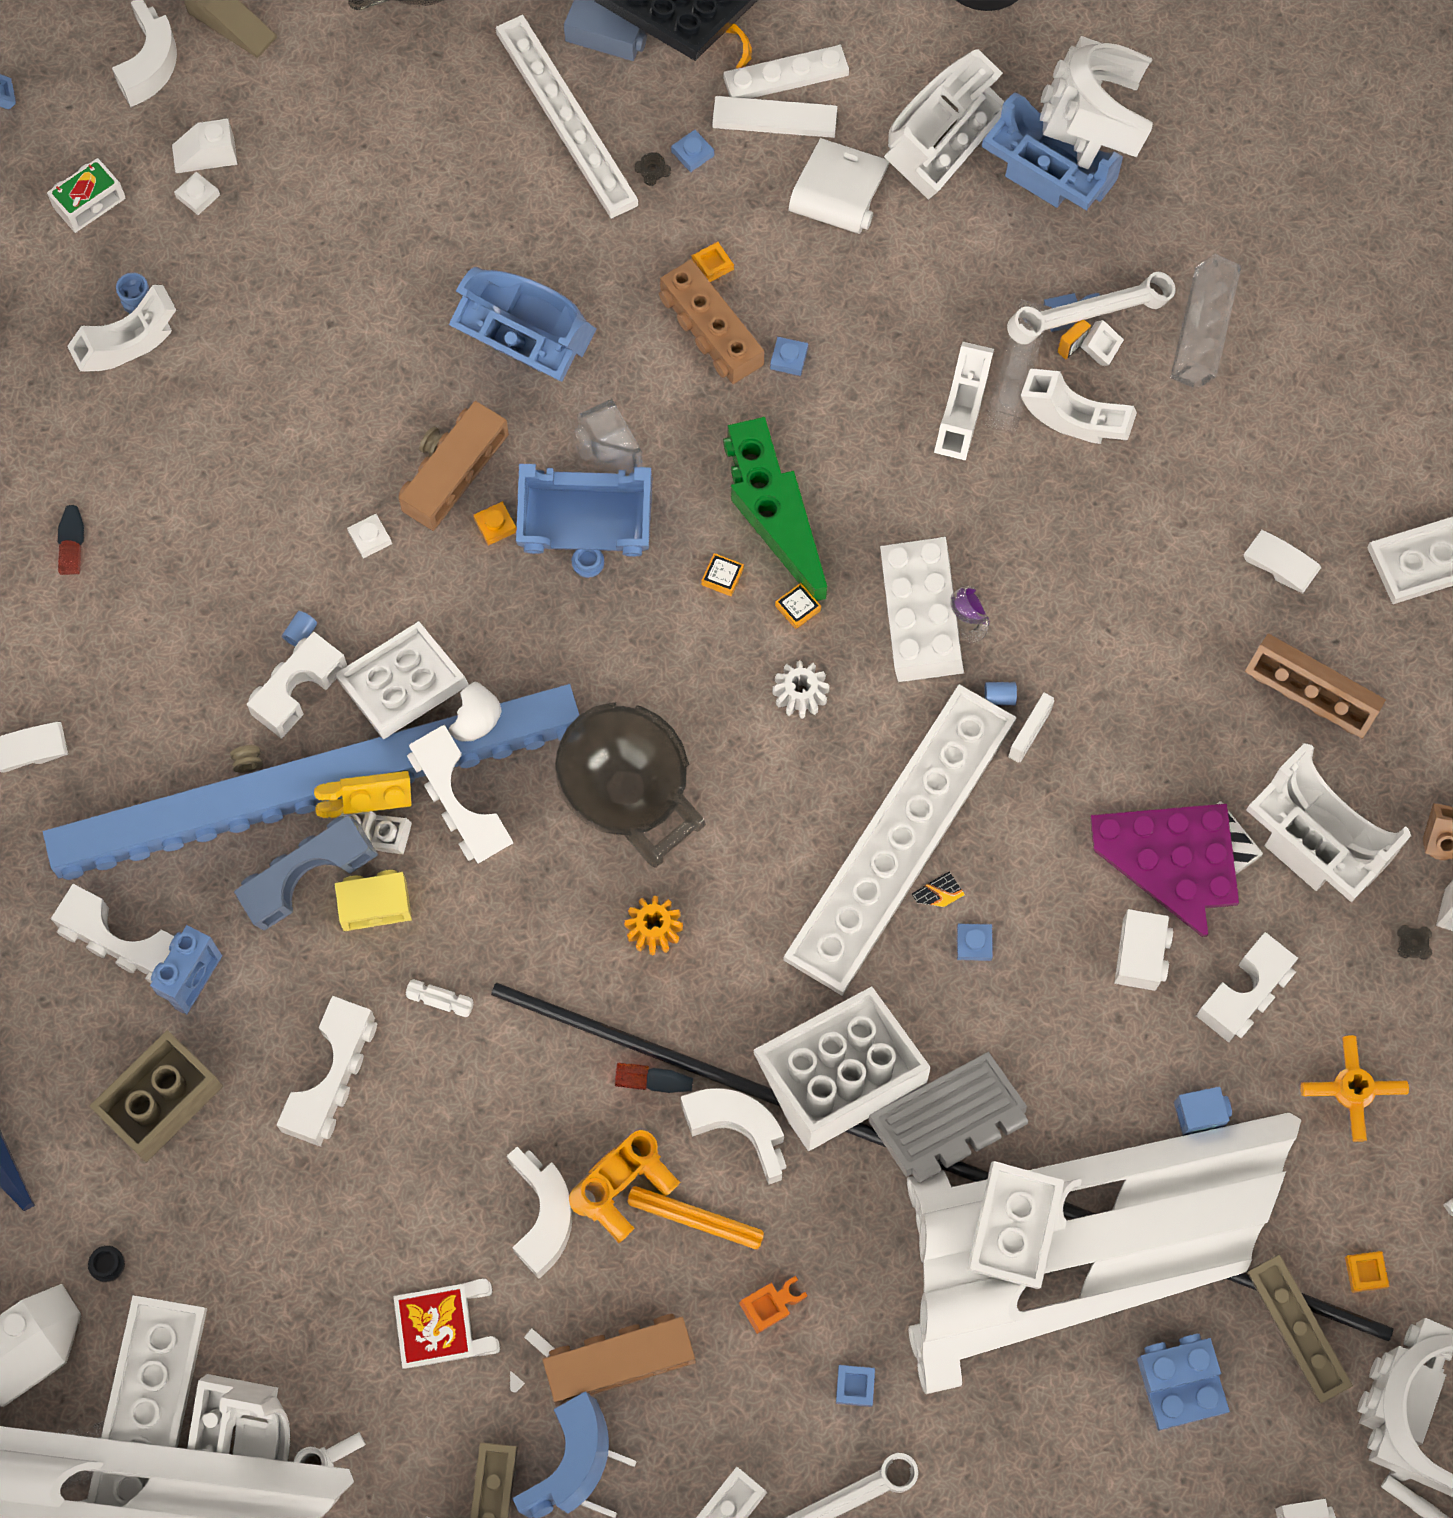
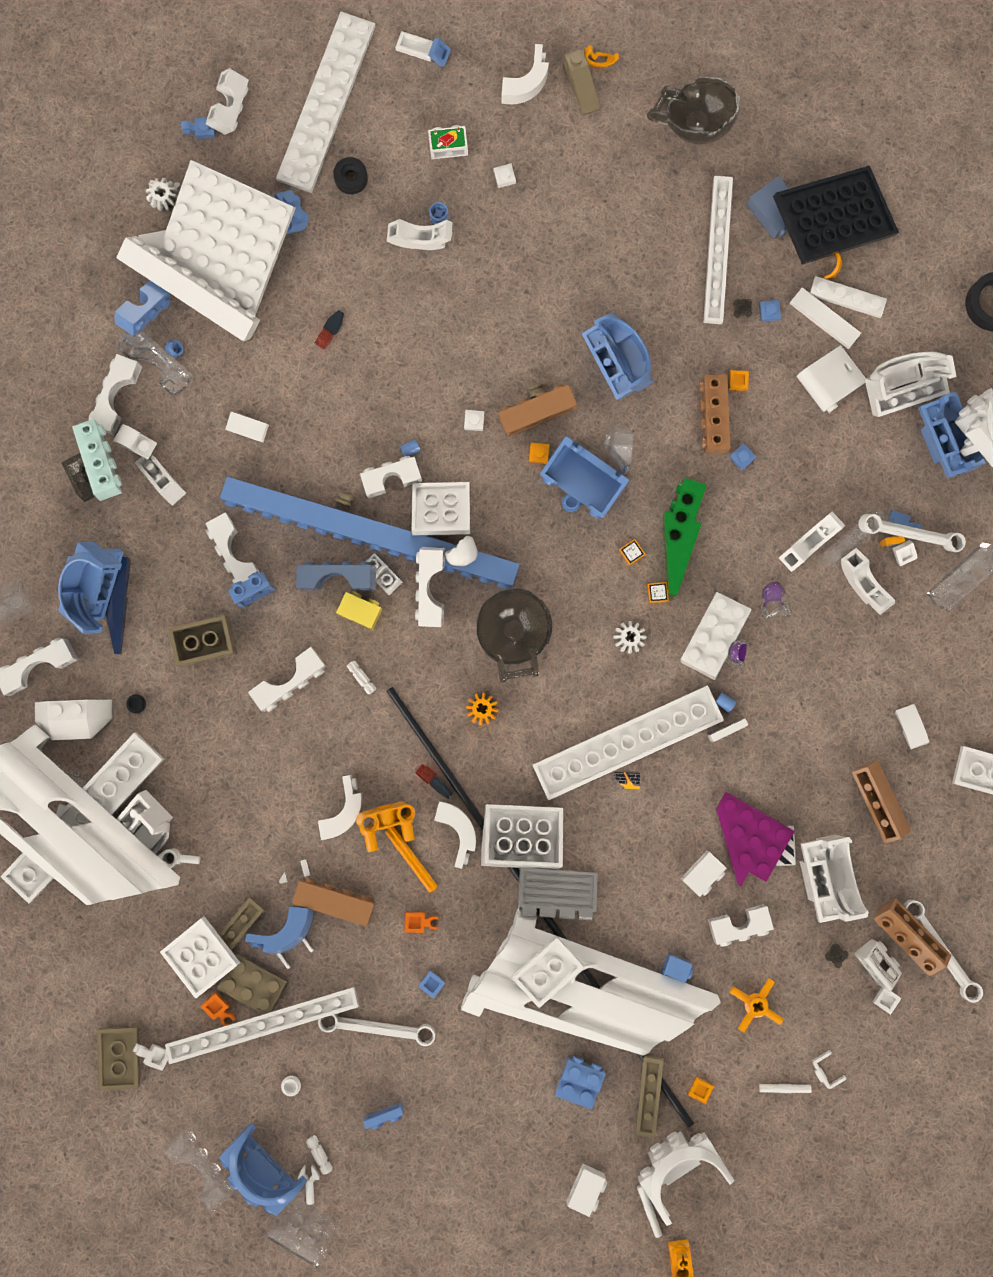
camera: 35 degrees right, 15 degrees up
(205, 147) = (523, 152): white slope -> none
(363, 794) = (386, 555): yellow hinge -> none
(437, 1325) = (264, 831): flag -> none
(963, 505) = (774, 593): none -> clear piece
(974, 942) = (627, 815): medium blue plate -> none

